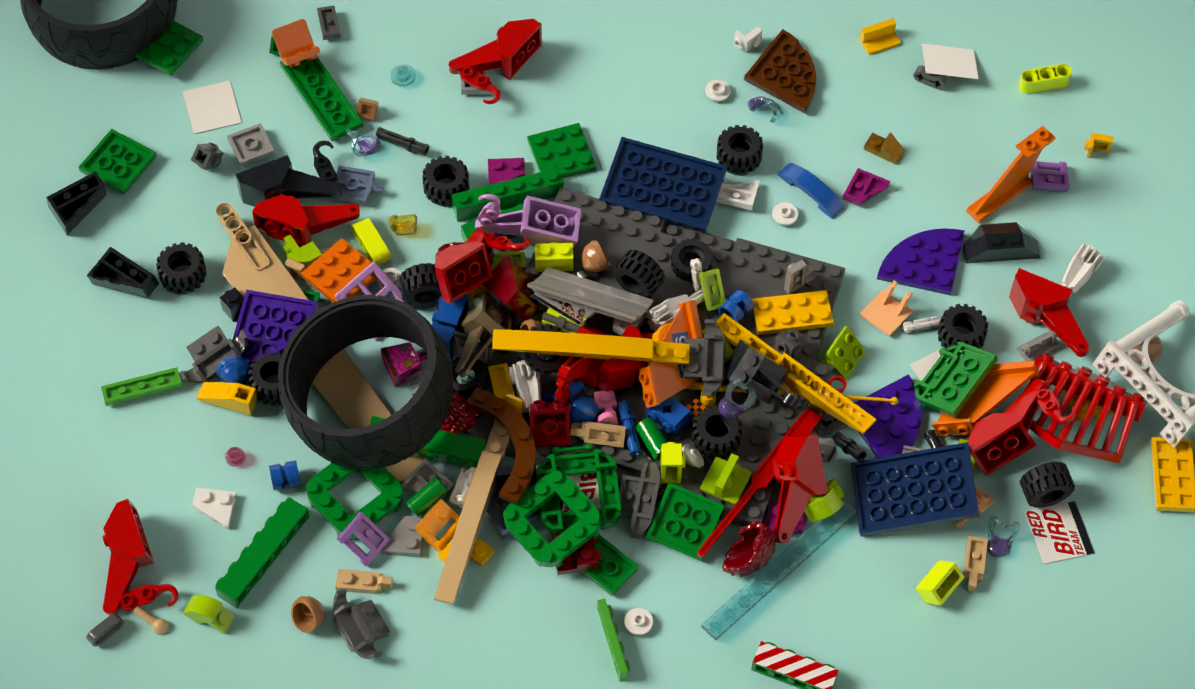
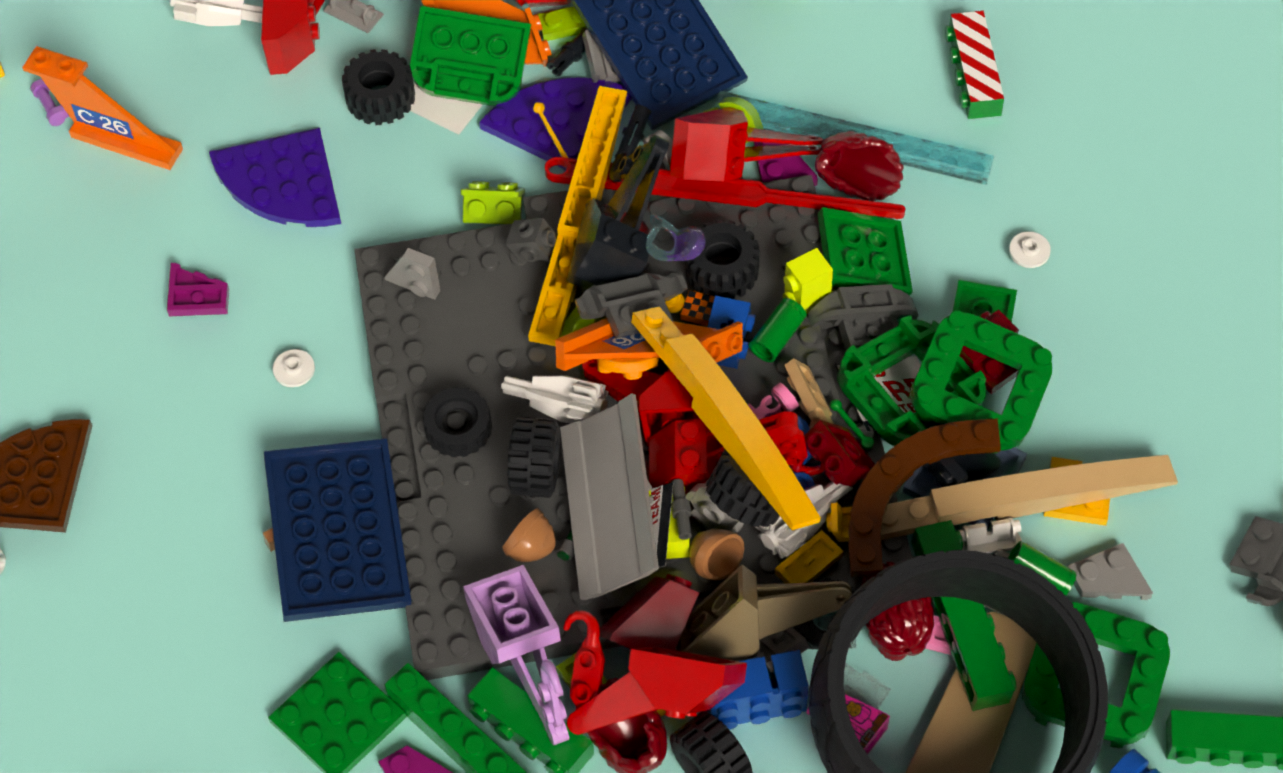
camera: 115 degrees left, 0 degrees up
(362, 581) = (1211, 594): tan hinge -> none
(368, 534) = (1153, 615): medium lavender plate -> none
(434, 522) = (1067, 537): light orange plate -> none
(554, 255) = (559, 592): neon yellow brick -> none
(611, 631) = (1081, 257): bright green plate -> none
(628, 421) = (768, 377): blue pin -> none
(692, 456) = (772, 274): white piece -> none
(696, 269) = (487, 390): white axle -> none
(712, 289) = (498, 364): lime plate -> none
(717, 90) = (105, 556): white piece -> none
(726, 479) = (782, 226): lime bracket -> none
(737, 306) = (508, 327): blue wheel -> none
(738, 194) = (287, 429): white wing -> none
(739, 161) = (205, 447): black tyre -> none
(759, 102) = (102, 482): clear light blue piece -> none
(798, 311) = (472, 270): yellow plate -> none
(813, 187) = (226, 359): blue slope -> none
(884, 148) = (108, 302): pearl gold slope -> none
(886, 311) = (391, 184): light nougat plate -> none
(921, 324) = (390, 141): white axle -> none
(1000, 243) = (210, 107): black wedge -> none

